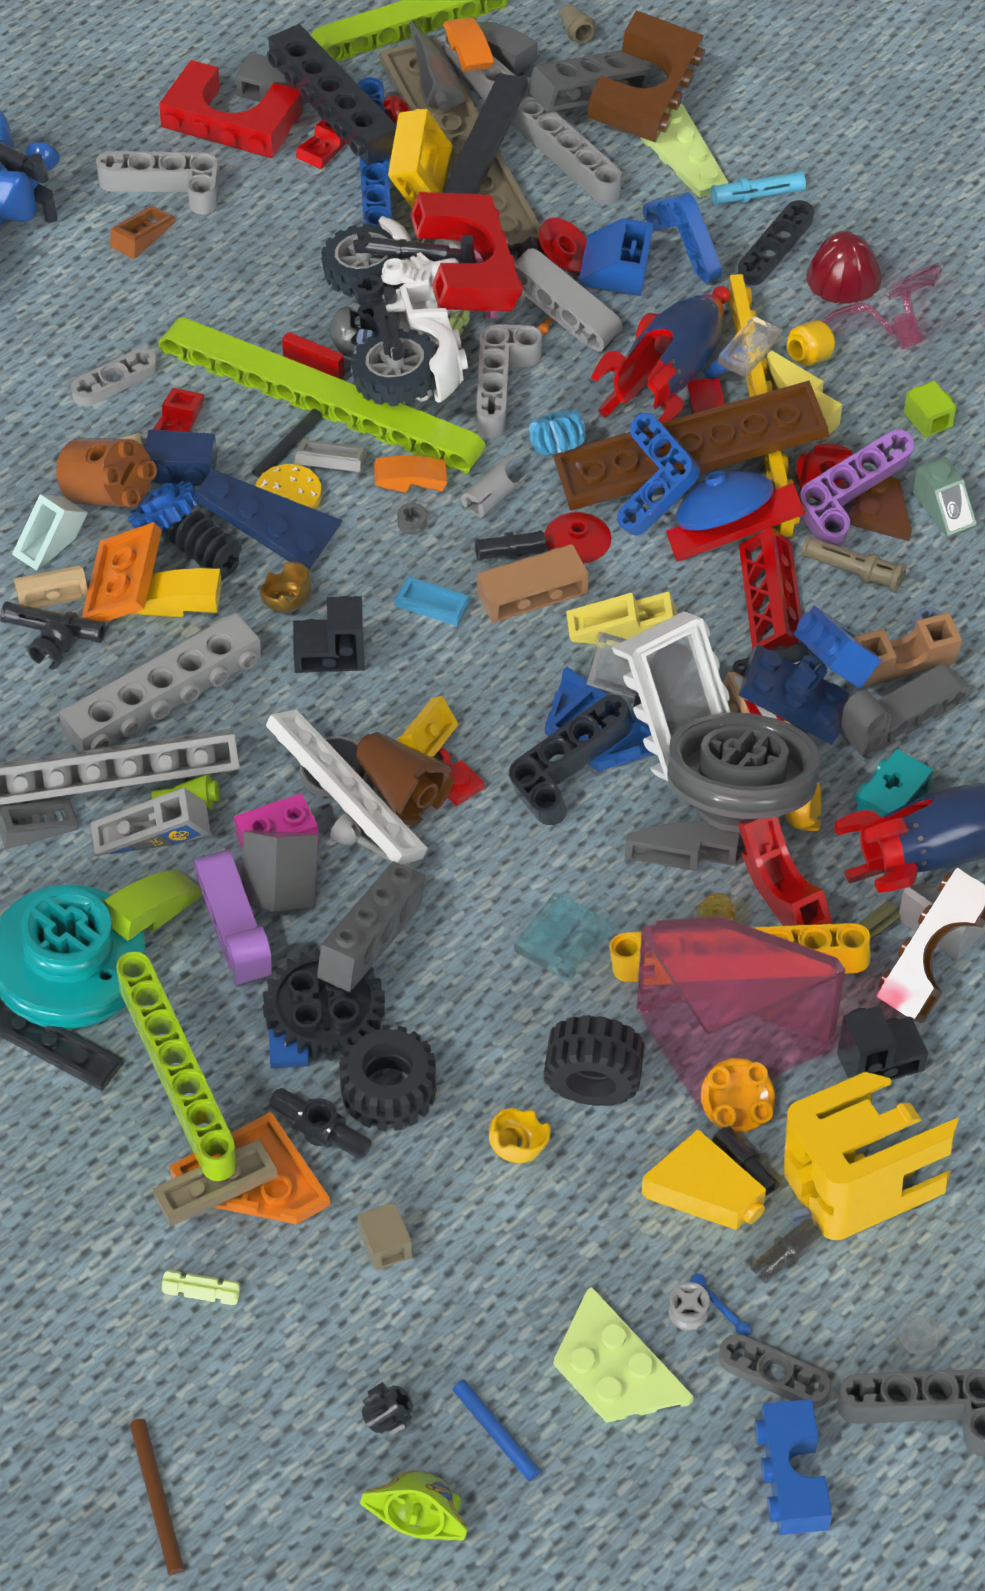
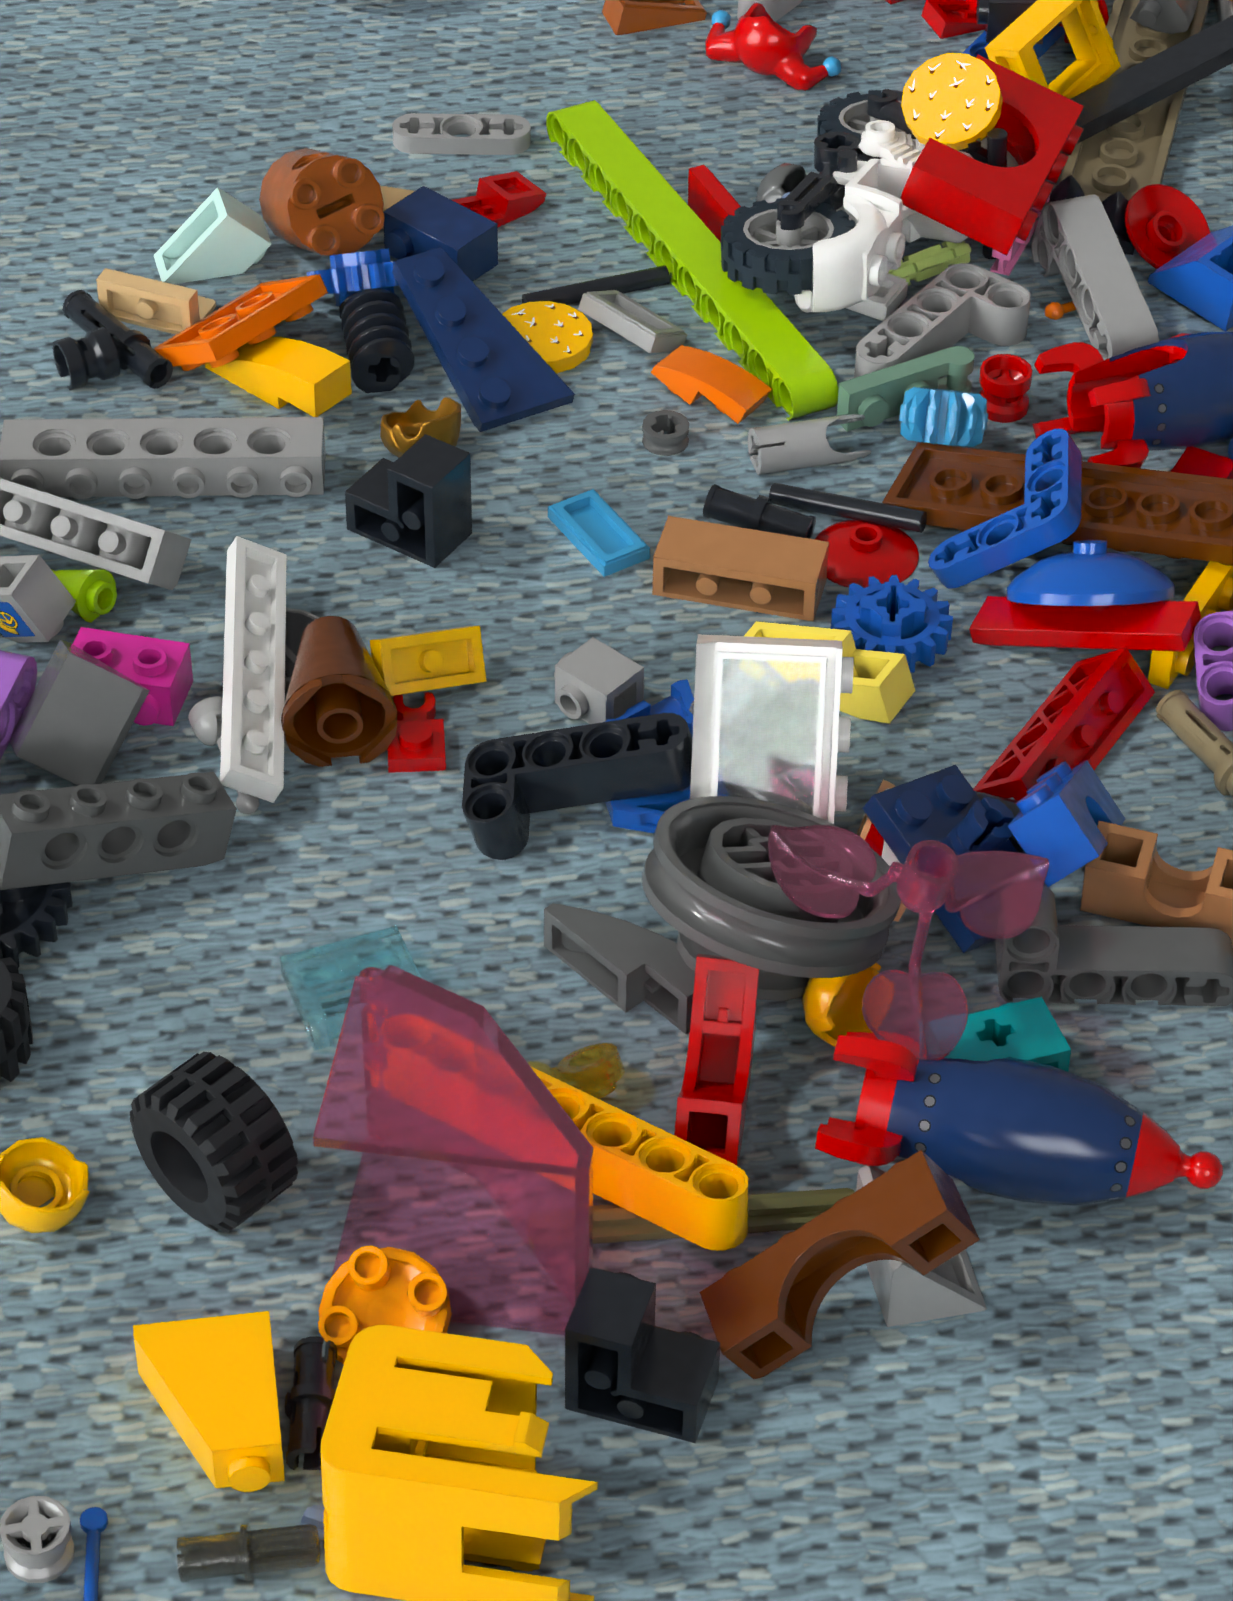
camera: 35 degrees right, 10 degrees down
(237, 227) = (767, 48): none -> red piece
(430, 231) = (952, 100): none -> yellow tile
(517, 422) = (883, 391): none -> sand green plate
(523, 695) = (597, 683): none -> light grey brick
(549, 514) = (848, 507): none -> black bar
(567, 393) = (1007, 393): none -> red wheel
(635, 572) = (895, 619): none -> blue gear
(850, 713) = (993, 890): none -> clear pink plant

